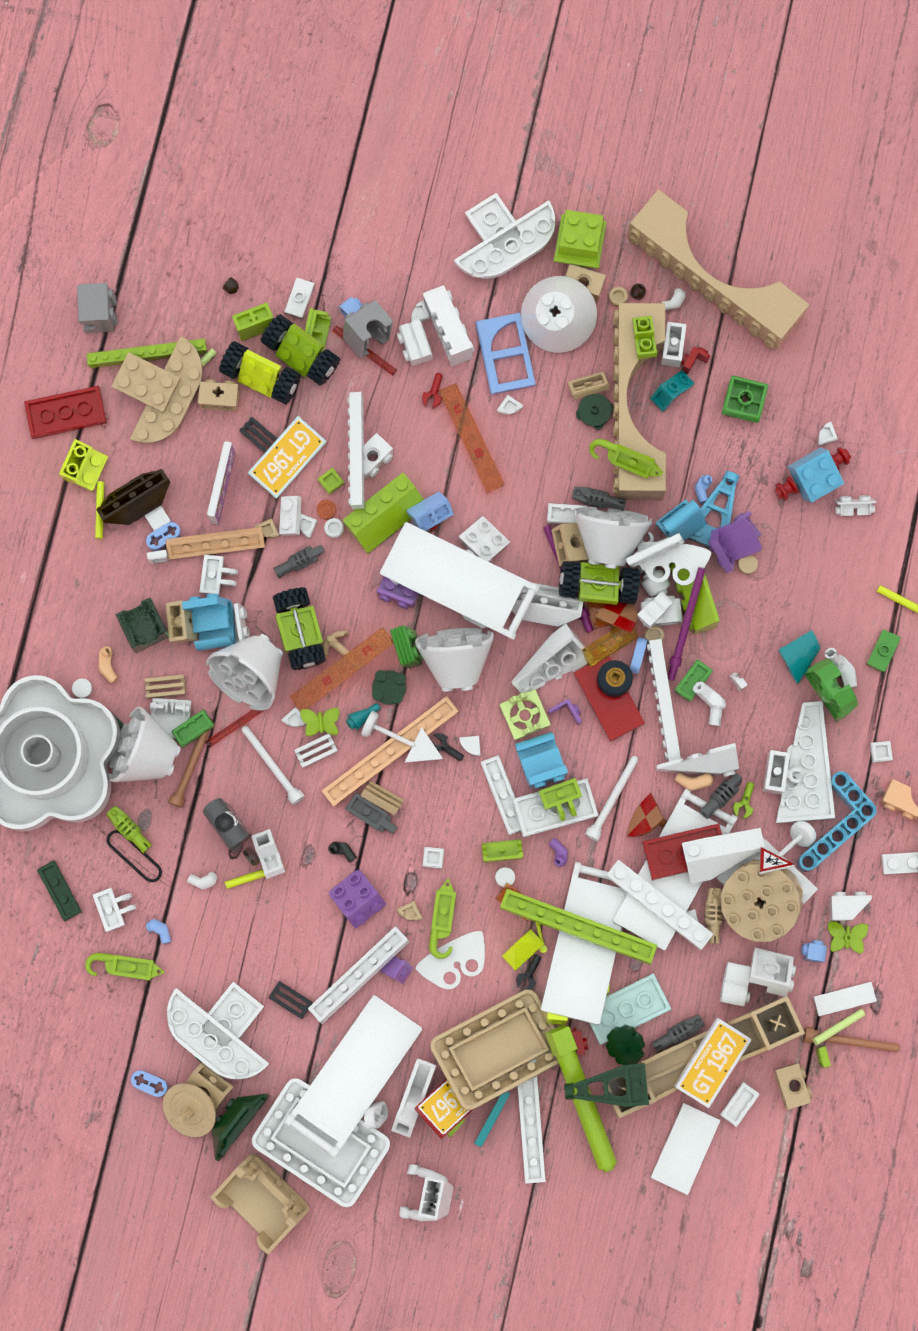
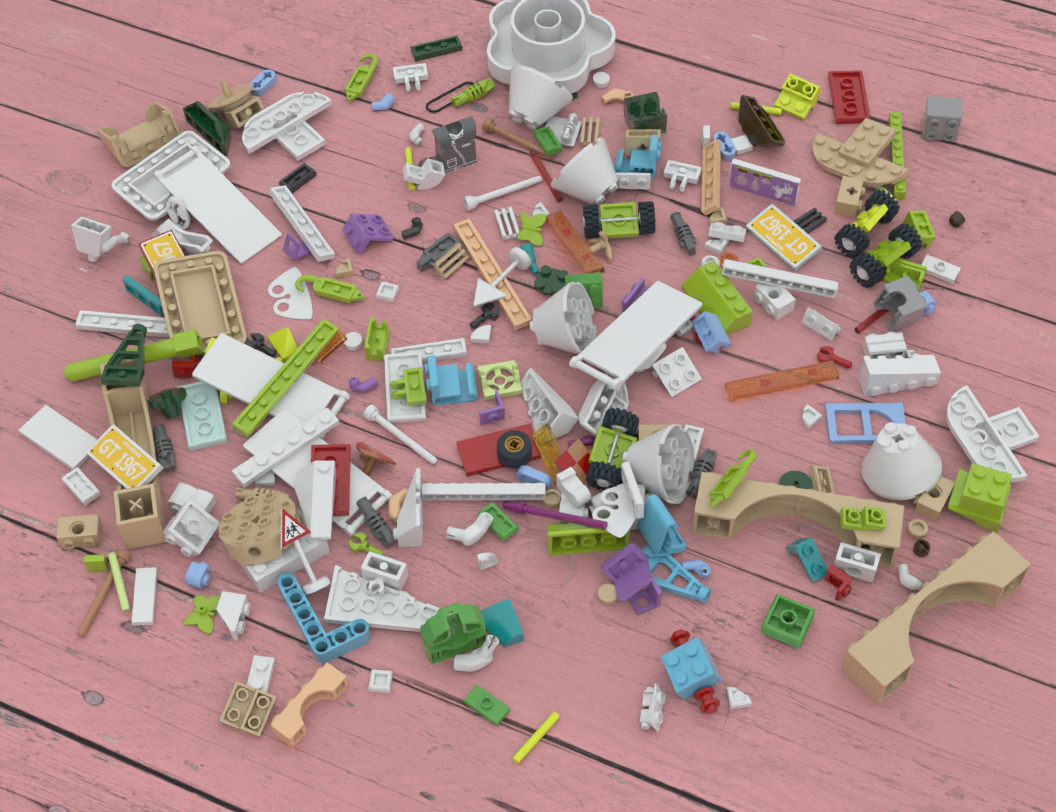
camera: 100 degrees right, 25 degrees down
(398, 399) = (820, 324): none -> white hinge

